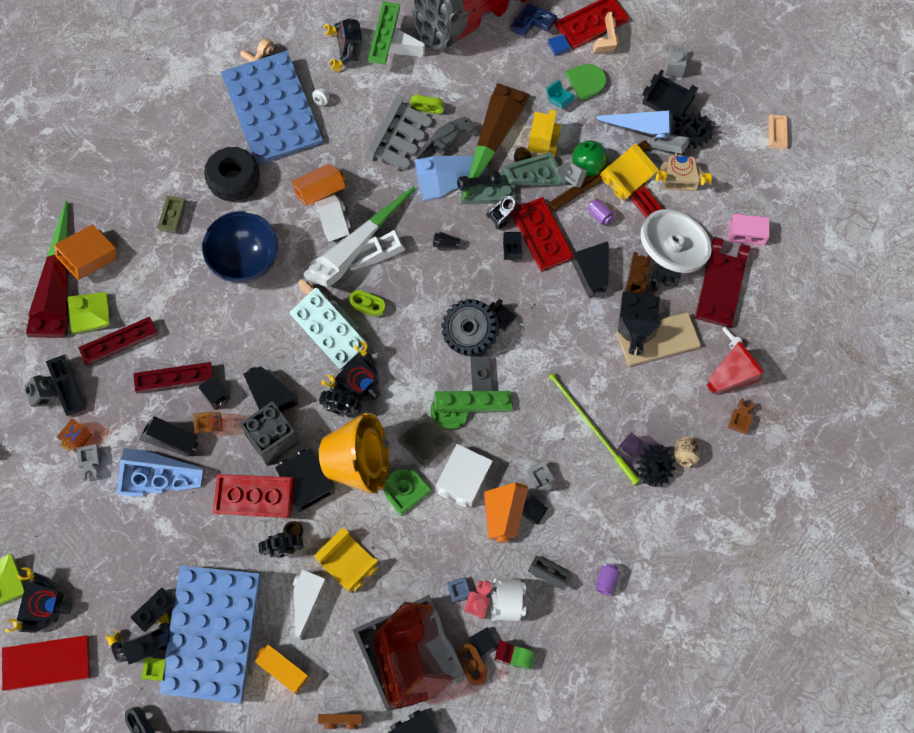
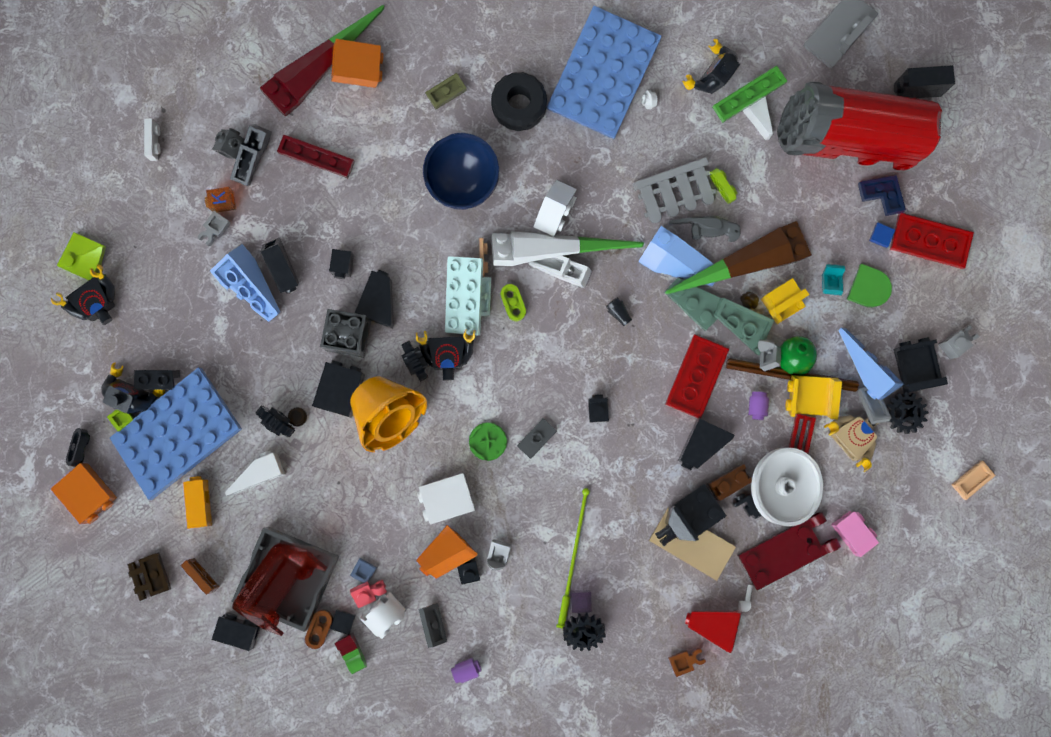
camera: 50 degrees right, 15 degrees up
(45, 663) = (61, 342): red tile -> none
(88, 312) = (317, 113): lime plate -> none
(172, 377) = (326, 222): dark red plate -> none
(208, 422) = (314, 282): clear orange brick -> none
(253, 496) = (293, 367): red tile -> none
(264, 48) = (648, 15): light nougat plate -> none
(318, 184) = (571, 174): orange brick -> none
(346, 561) = (311, 475): yellow panel -> none
(405, 489) = (399, 465): bright green tile -> none
(425, 440) = (448, 445): clear smoke plate -> none
(464, 182) = (704, 299): black piece -> none
(473, 401) = (509, 452): bright green plate -> none
(481, 336) = (577, 398): wheel -> none
(501, 214) = (682, 333): black piece -> none
(512, 246) = (662, 366): black bracket -> none
(604, 44) = (917, 270): light nougat bracket -> none
(687, 451) = (618, 644): tan head -> none

